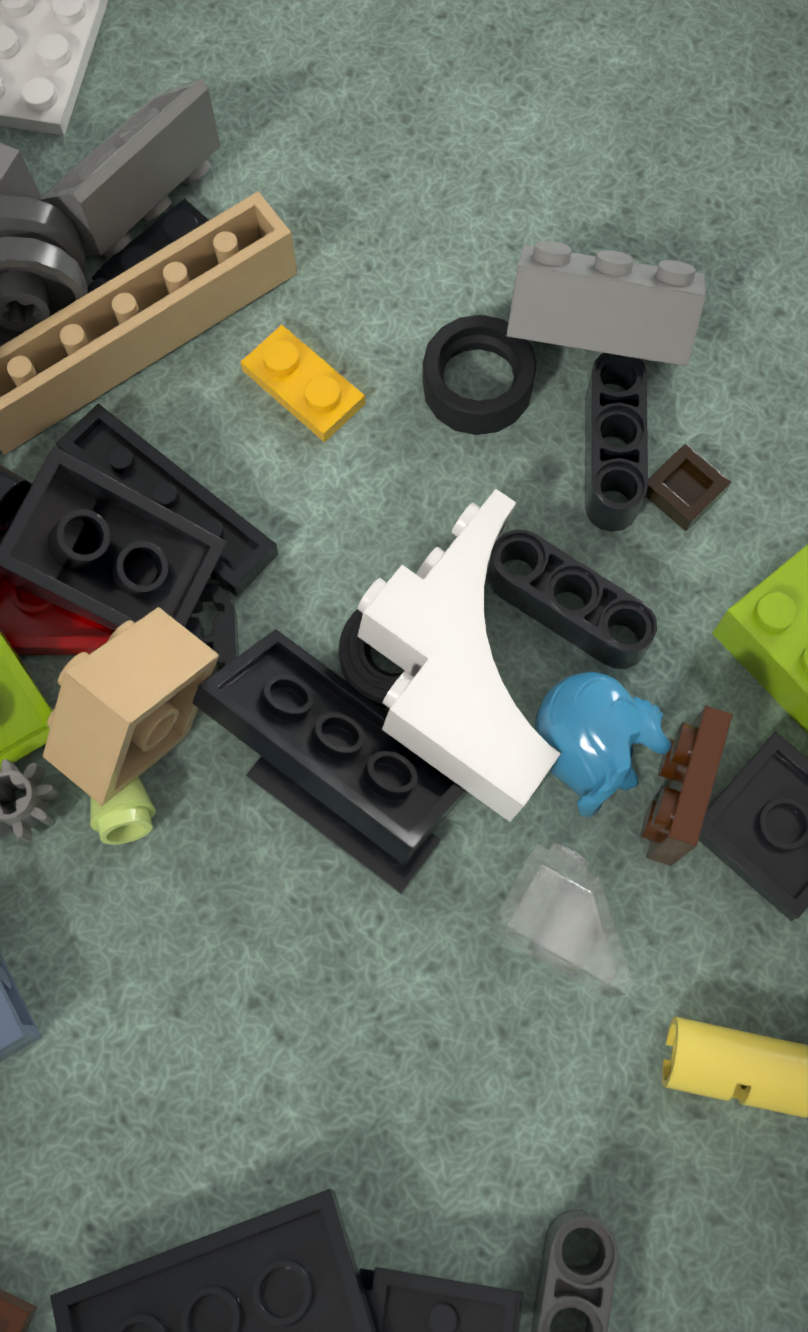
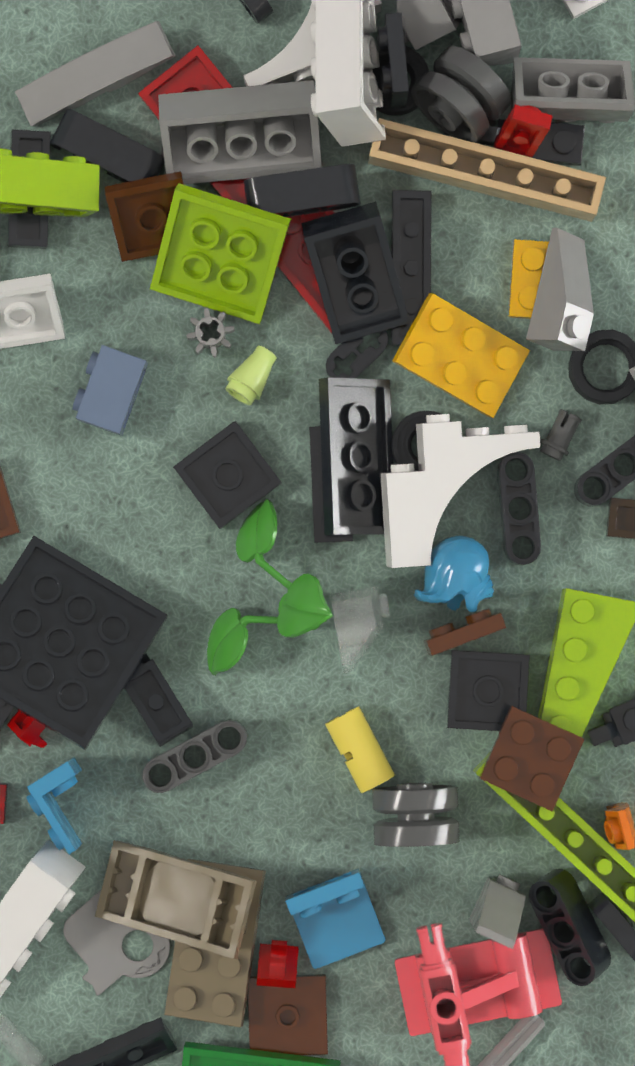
camera: 50 degrees right, 15 degrees up
(116, 219) = (523, 130): none -> red plate
(126, 703) = (293, 351): tan brick -> none
(213, 935) = (227, 475): none -> black plate
(319, 521) = (461, 355): none -> yellow plate
(366, 360) = (564, 297): none -> light grey slope
(484, 981) = (299, 609): none -> bright green plant
(518, 486) = (560, 435): none -> dark grey pin

